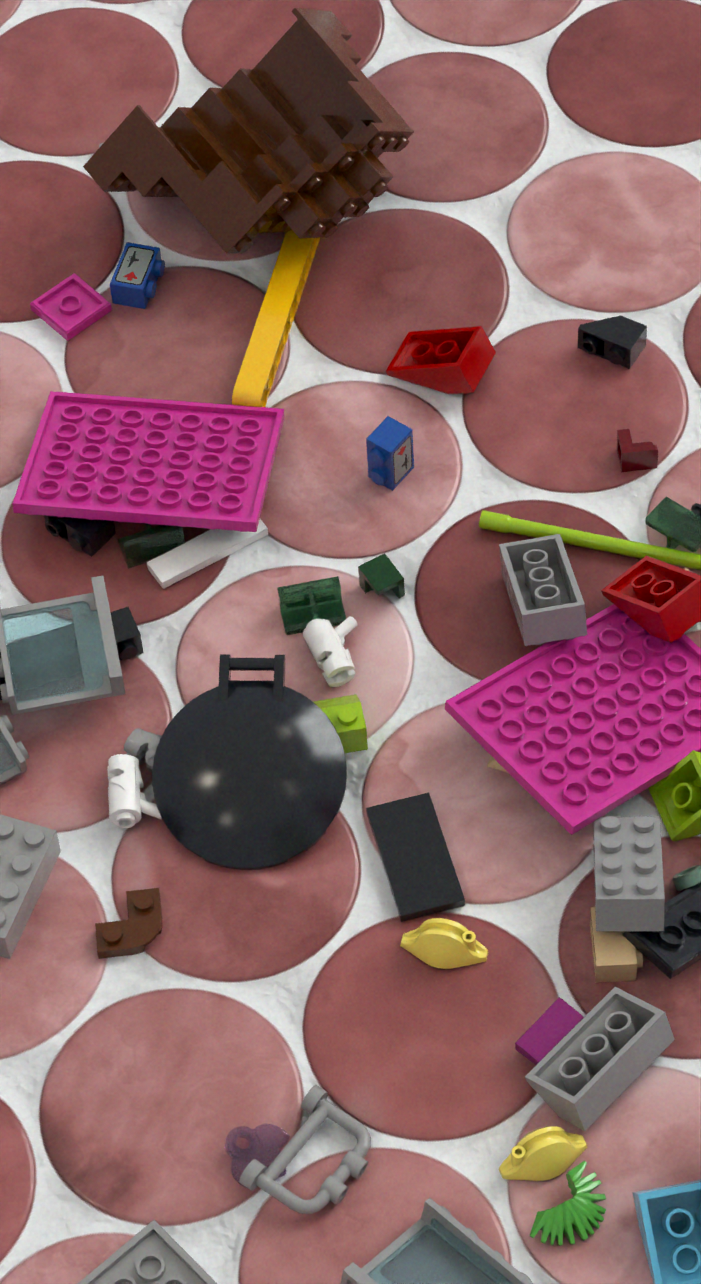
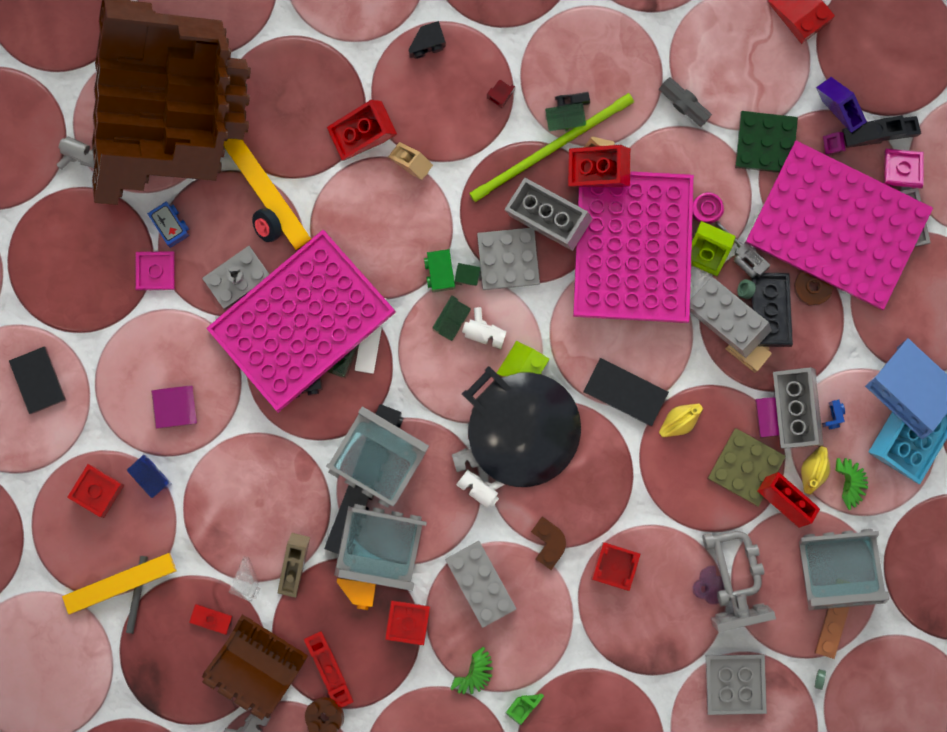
camera: 55 degrees left, 30 degrees up
(141, 375) = (236, 277): none -> light grey plate
(172, 1016) = (615, 566): none -> red container
(230, 352) = (266, 225): none -> black wheel
(250, 1209) = (742, 614): none -> light grey plate
(357, 545) = (440, 270): none -> green brick
(390, 453) = (402, 208): blue brick -> none
(448, 610) = (508, 258): none -> light grey plate
(457, 430) = (411, 160): none -> tan slope
(460, 1069) = (745, 465): none -> olive plate
(464, 1138) = (788, 500): none -> red brick
(636, 1120) = (837, 411): none -> blue bracket

